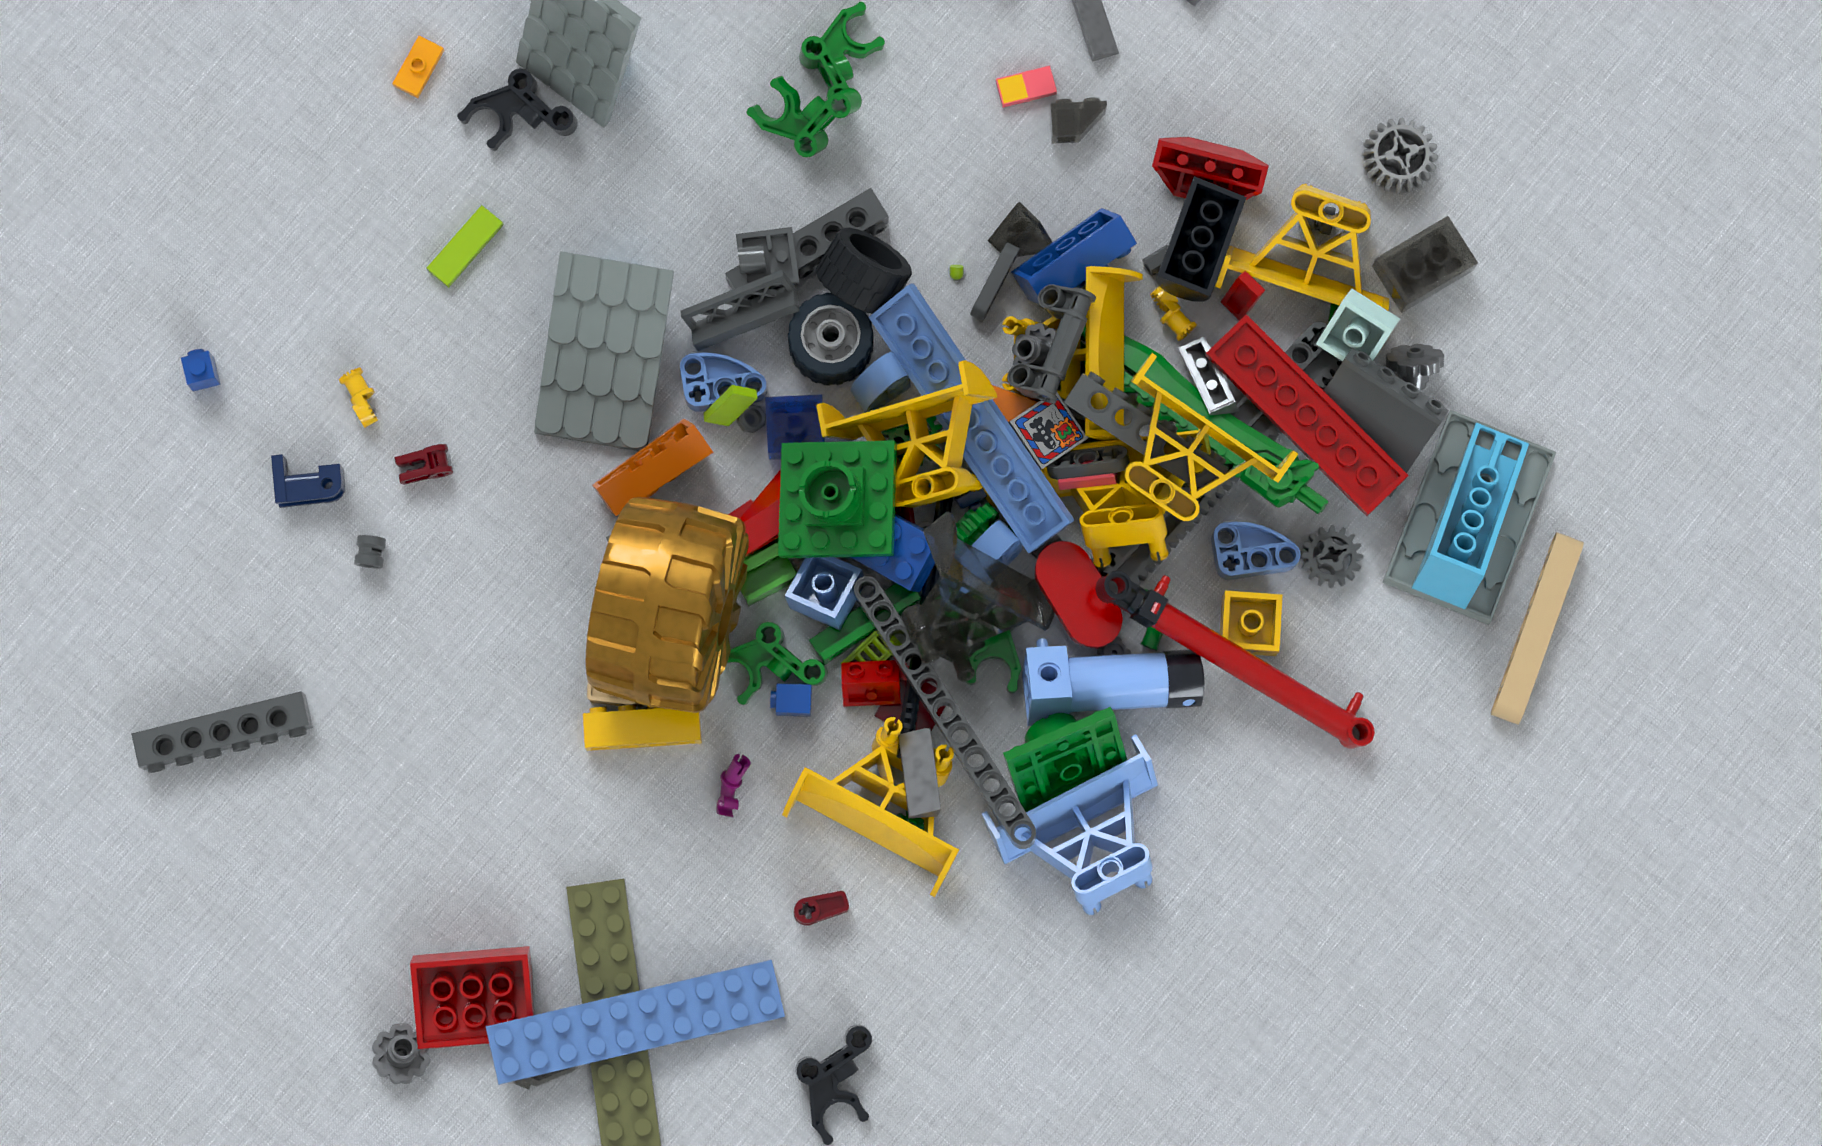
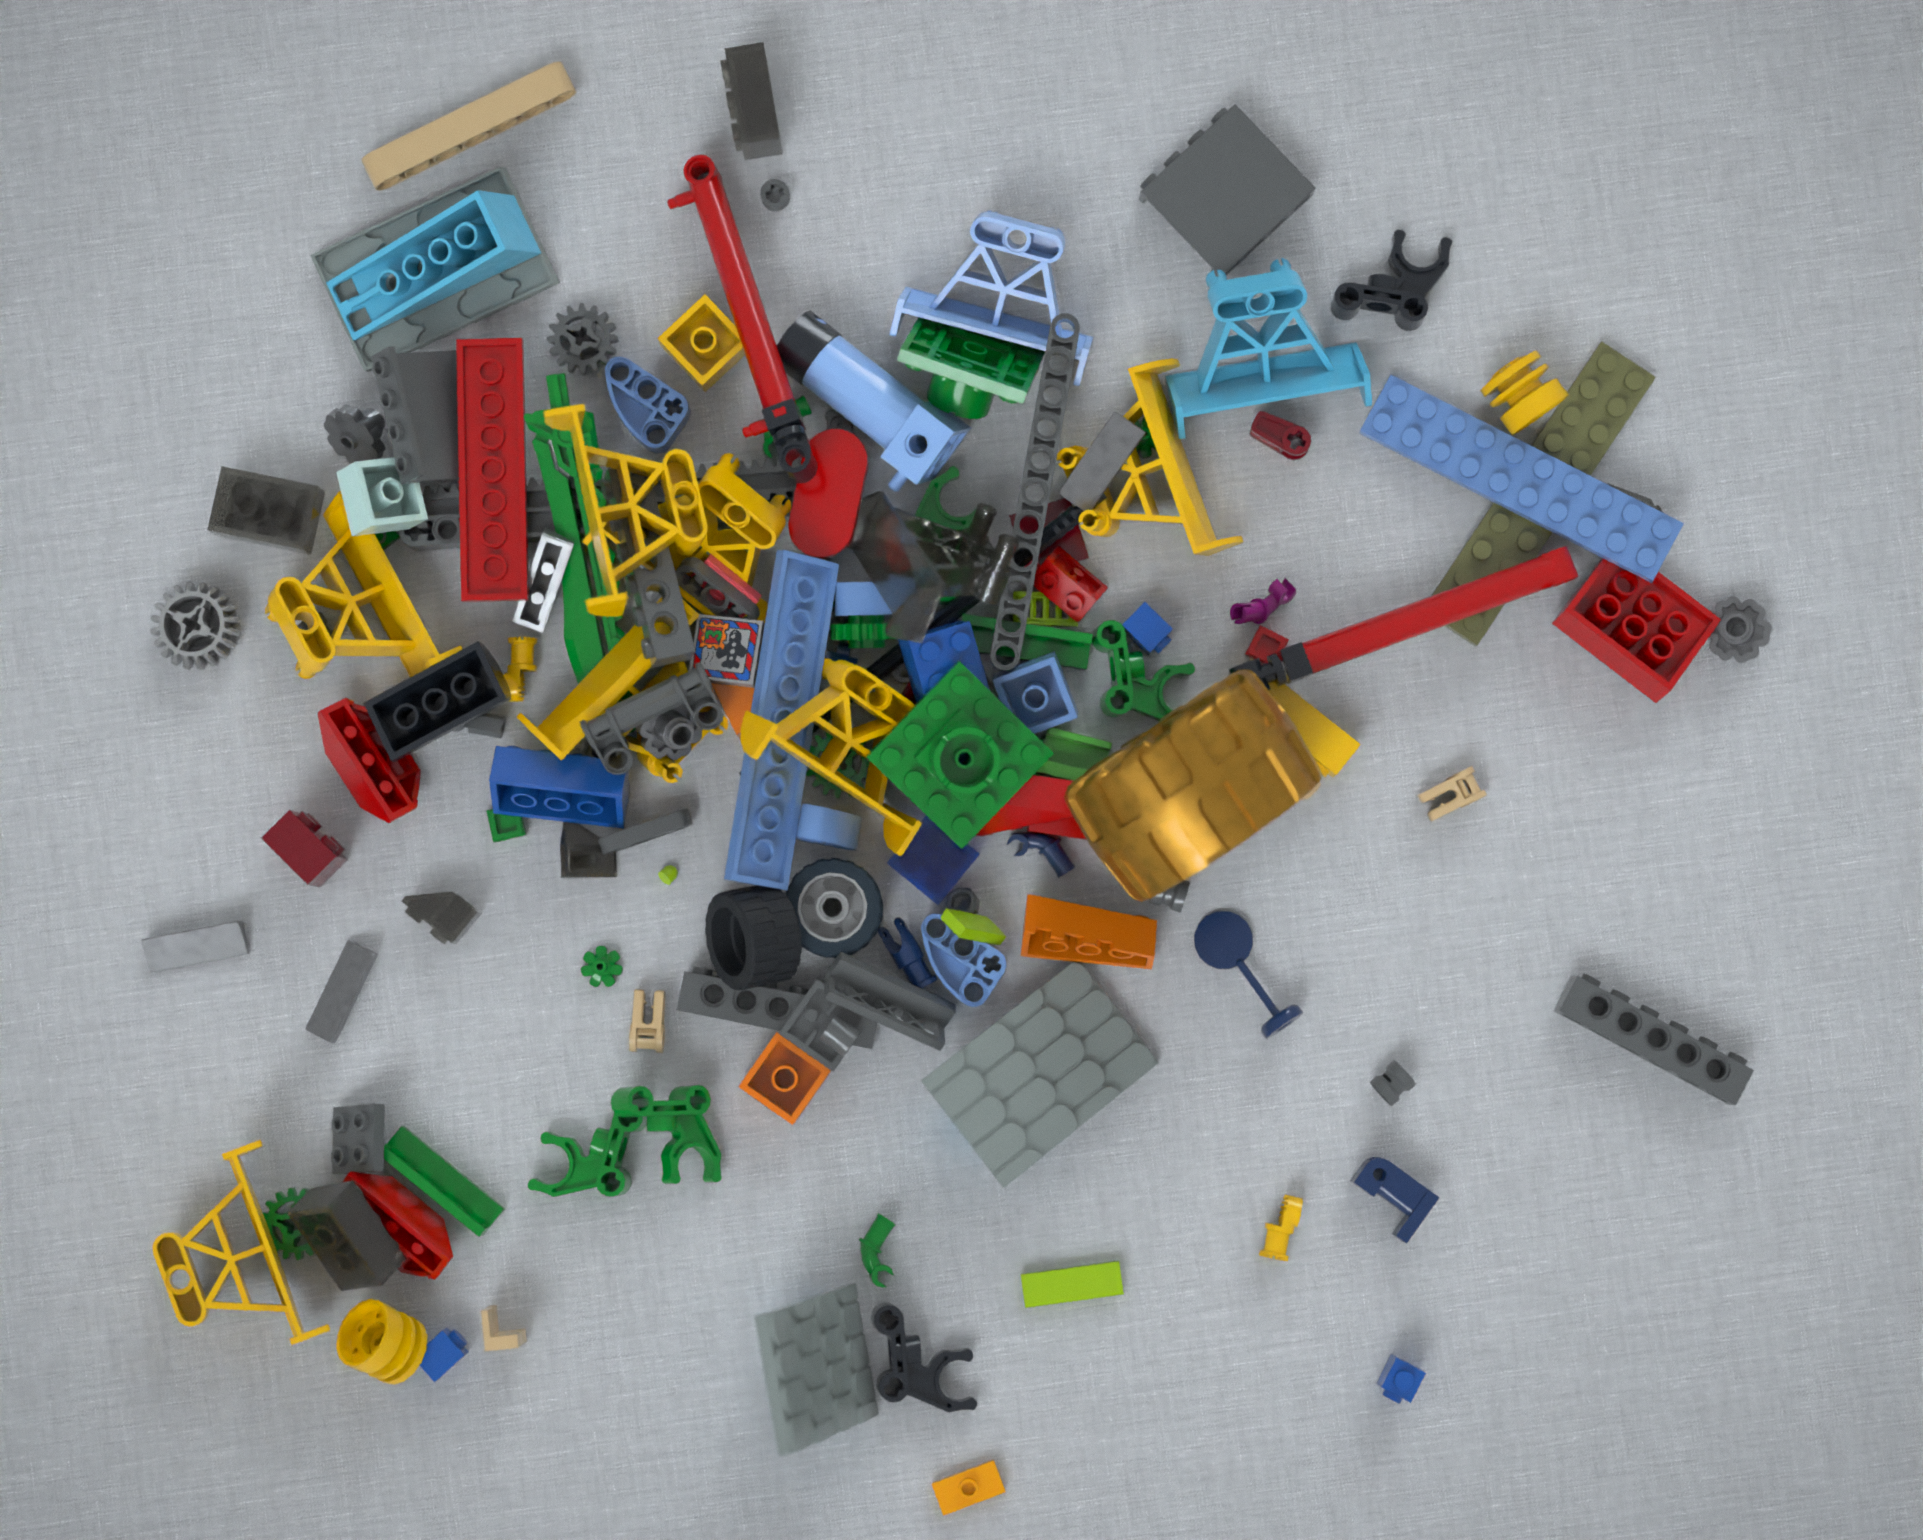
camera: 135 degrees left, 5 degrees up
(432, 457) = (1267, 1112): dark red piece -> none
(498, 782) = (1462, 796): none -> tan piece
(559, 546) = (1225, 942): none -> dark blue piece
(612, 154) = (870, 1248): none -> green piece
(624, 854) = (1414, 619): none -> red piece
(684, 1080) = (1524, 392): none -> yellow wheel
(704, 761) = (1265, 643): none -> red tile
(729, 503) = (1048, 847): none -> dark blue piece
(757, 354) = (908, 956): none -> dark blue piece
(762, 203) = (784, 1078): none -> orange brick
(872, 939) = (1267, 378): none -> medium azure piece
(886, 160) = (654, 1029): none -> tan piece
(944, 177) = (609, 966): none -> green plant
(1005, 1038) = (1227, 190): none -> dark grey panel
(1026, 86) = (456, 982): coral tile -> none
(1086, 207) = (505, 826): none -> green tile
(1197, 79) = (305, 848): none -> dark red brick
(1242, 295) = (447, 623): red tile -> none
(1307, 766) = (783, 200): none -> dark grey bush
(1370, 808) = (751, 101): none -> clear smoke brick

